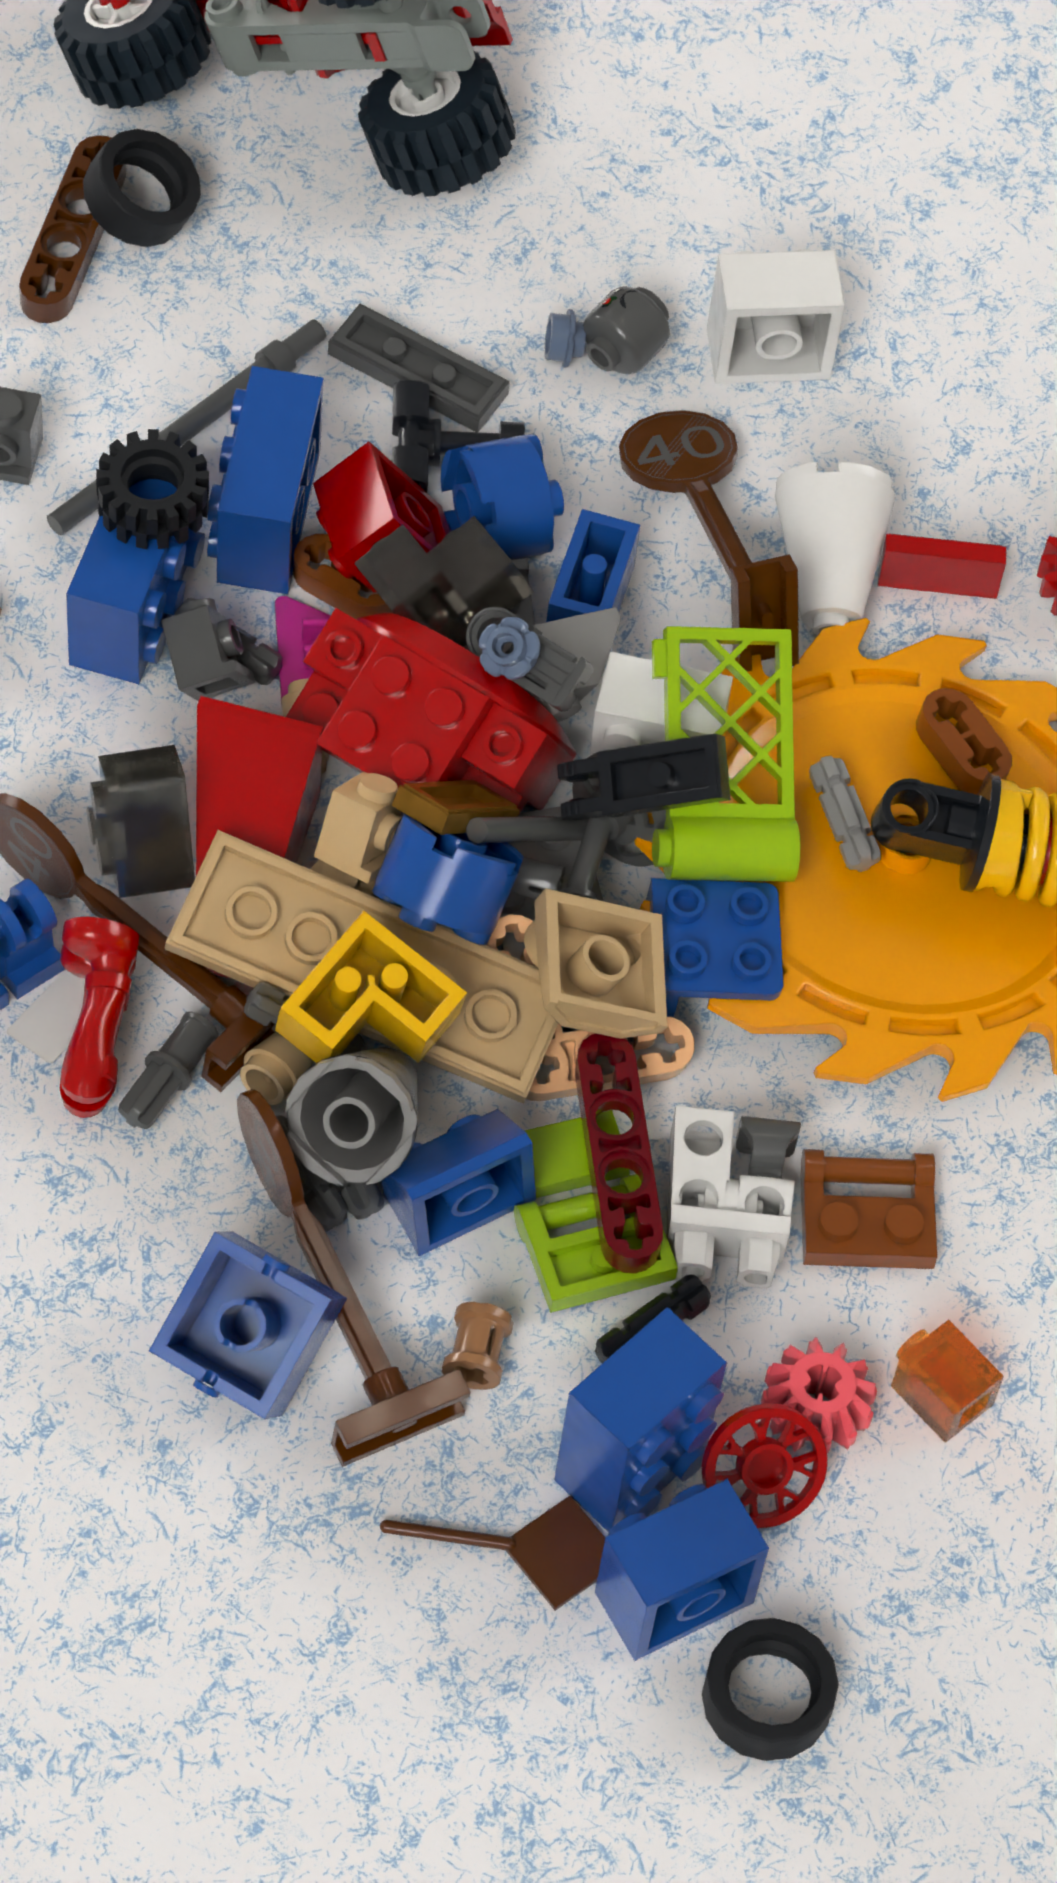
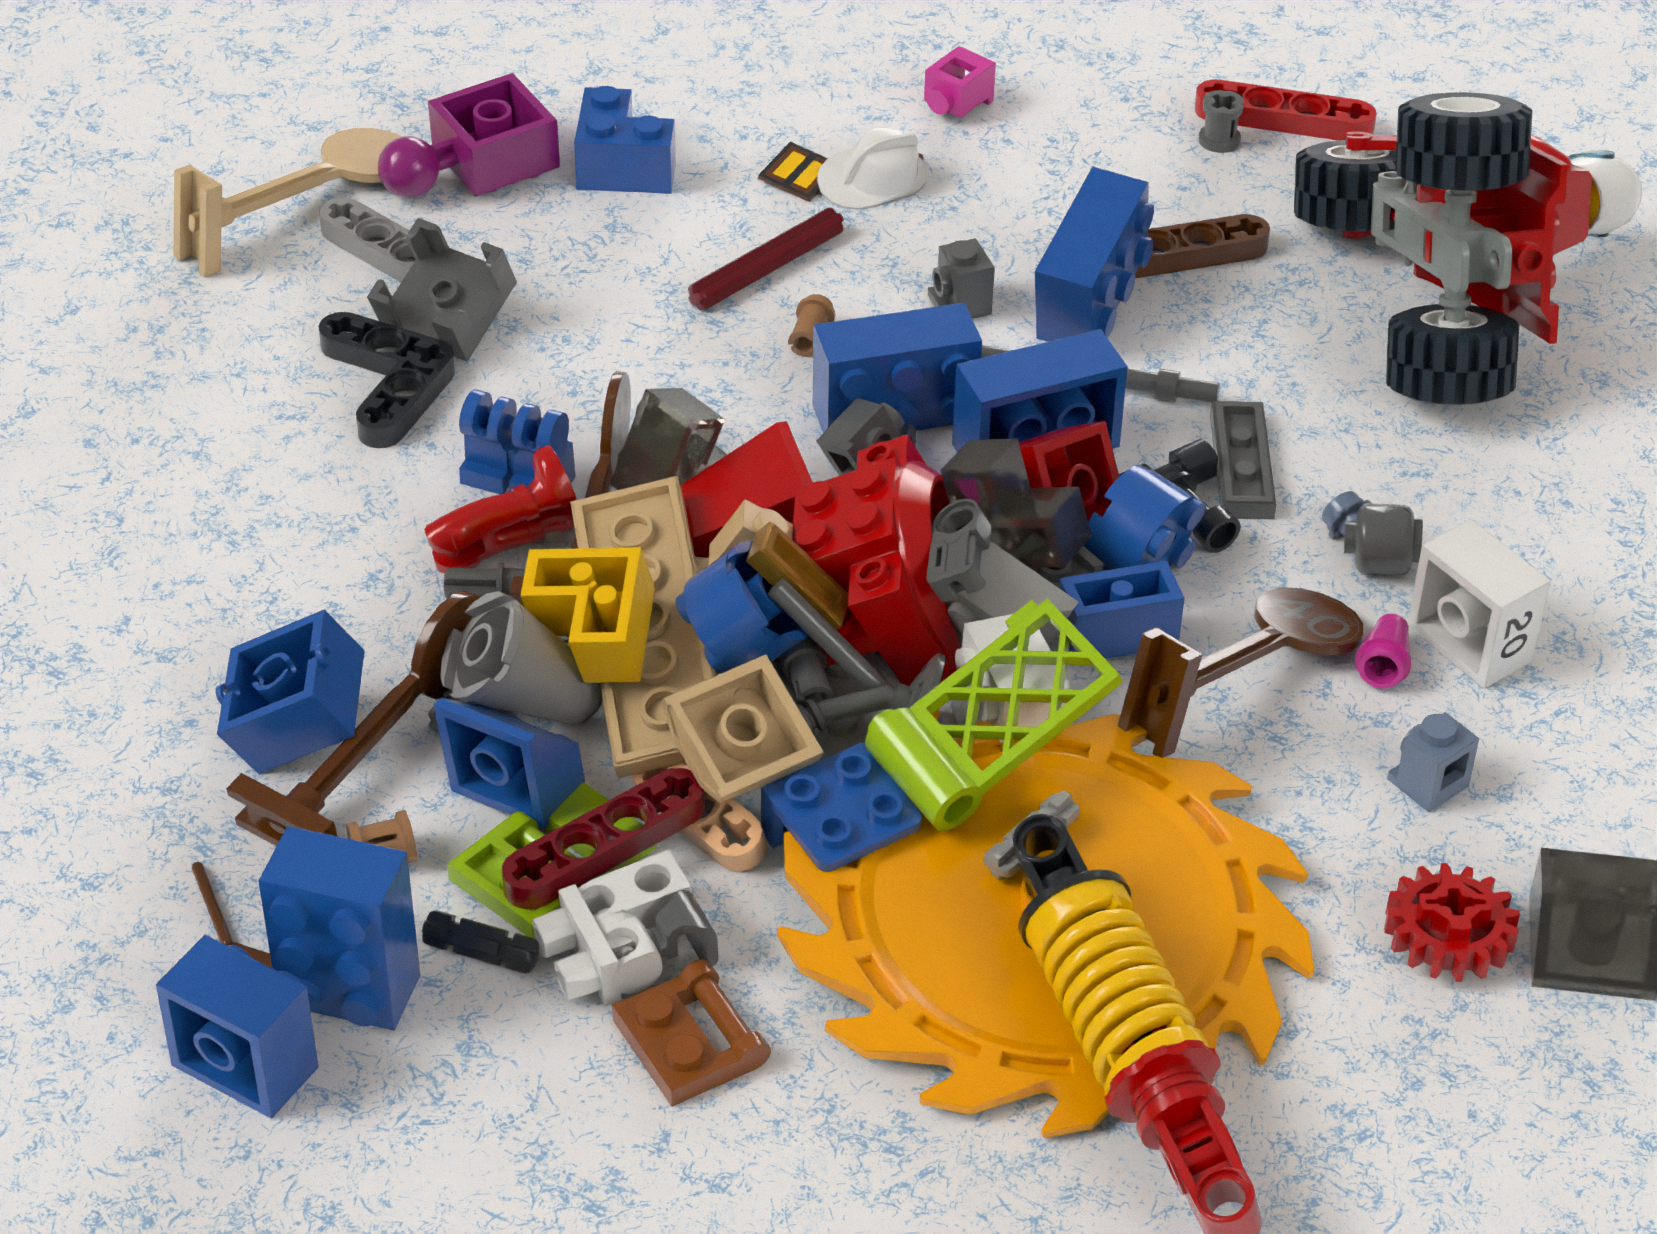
camera: 65 degrees right, 15 degrees down
(99, 308) = (1094, 256): none -> blue brick
(146, 461) = (931, 315): black tyre -> none
(166, 163) = (1251, 222): black tyre -> none
(523, 656) = (943, 524): sand blue plate -> none
(650, 777) = (921, 669): black hinge -> none
(757, 419) = (1385, 652): none -> dark pink cone
(765, 1463) = (378, 1047): red wheel -> none
(781, 1640) = (189, 1185): black tyre -> none
(824, 1376) = (476, 1065): coral gear -> none
(834, 536) = (1304, 730): white cone -> none
(921, 469) = (1435, 761): none -> sand blue brick
(941, 566) = (1355, 815): red tile -> none
(945, 1379) = (550, 1142): clear orange brick -> none
(959, 744) = (1189, 892): dark orange beam -> none

